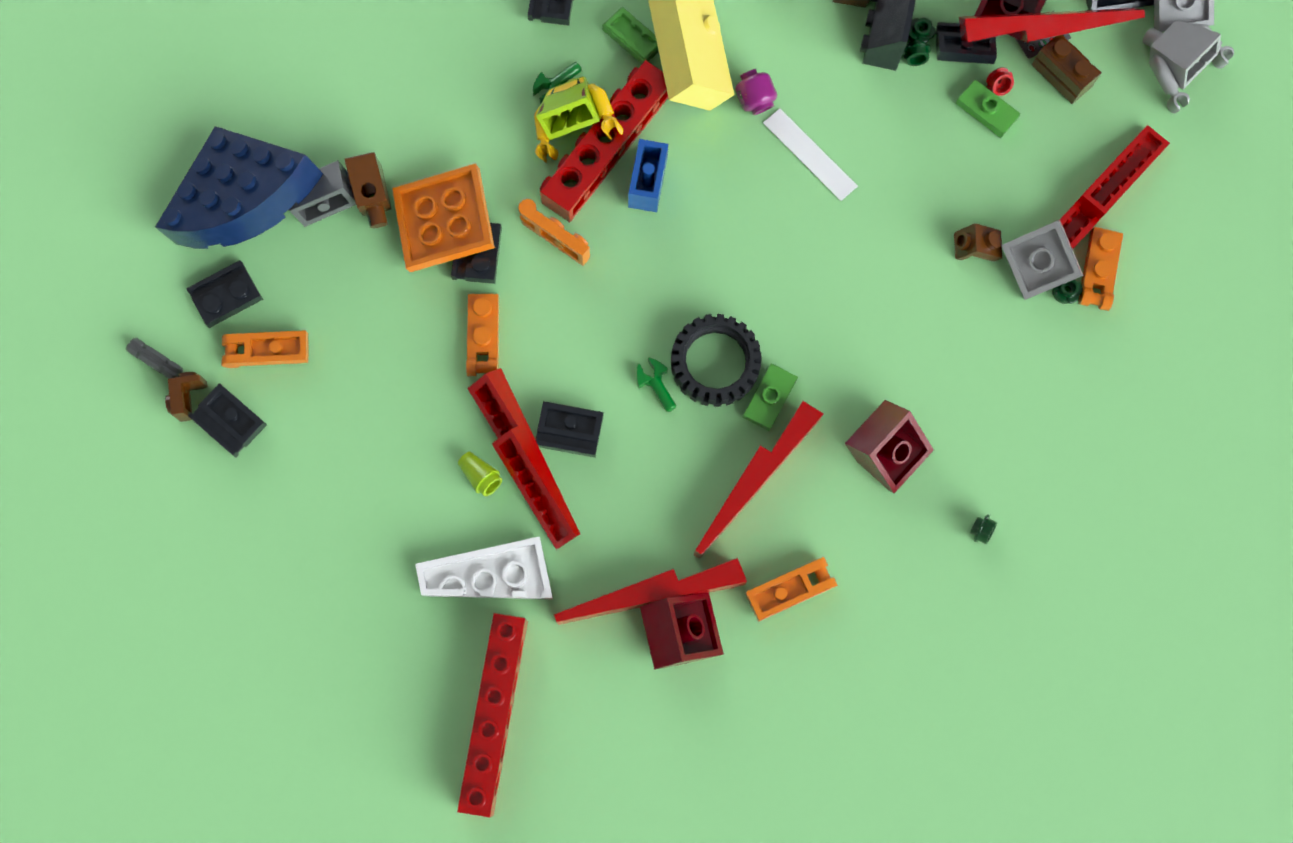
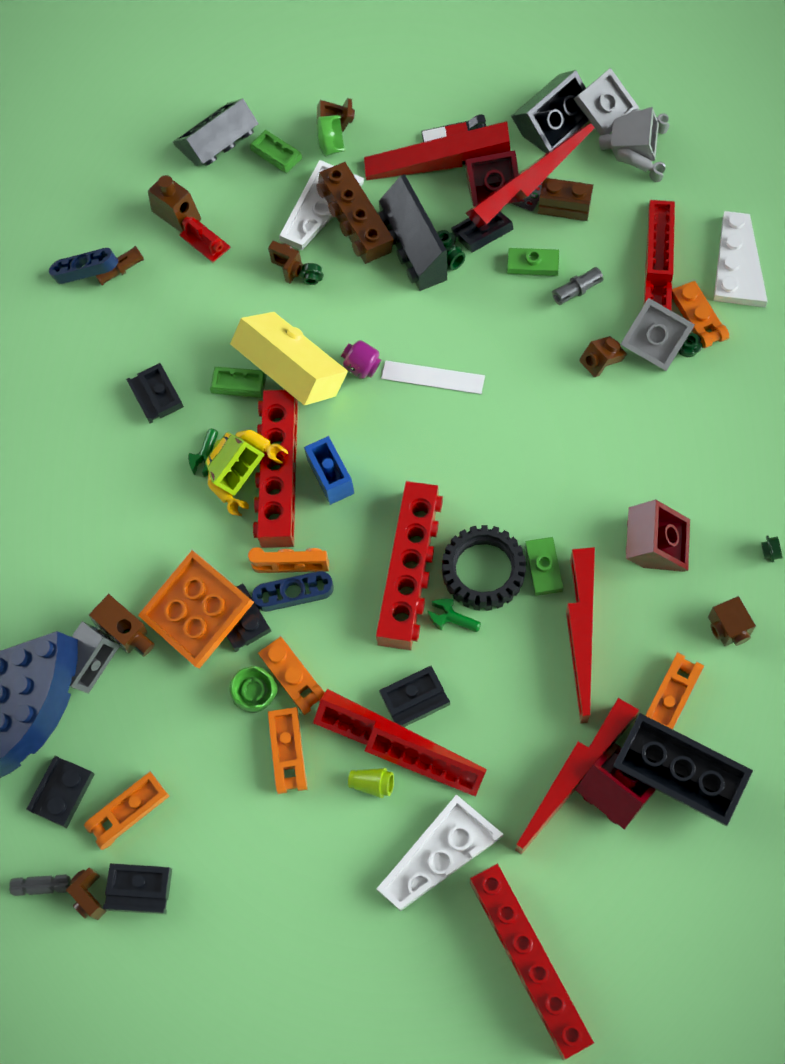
camera: 25 degrees left, 10 degrees down
(430, 395) = (287, 749): none -> orange plate
(441, 322) = (253, 689): none -> bright green hair
(522, 245) = (310, 578): none -> dark blue beam
(703, 255) = (402, 633): none -> red brick
(741, 658) = (683, 769): none -> black slope
(891, 566) = (731, 622): none -> reddish brown brick
(1000, 81) = (527, 237): red plate -> none
(1009, 161) = (577, 285): none -> dark grey pin
(1176, 250) = (738, 265): none -> white wing

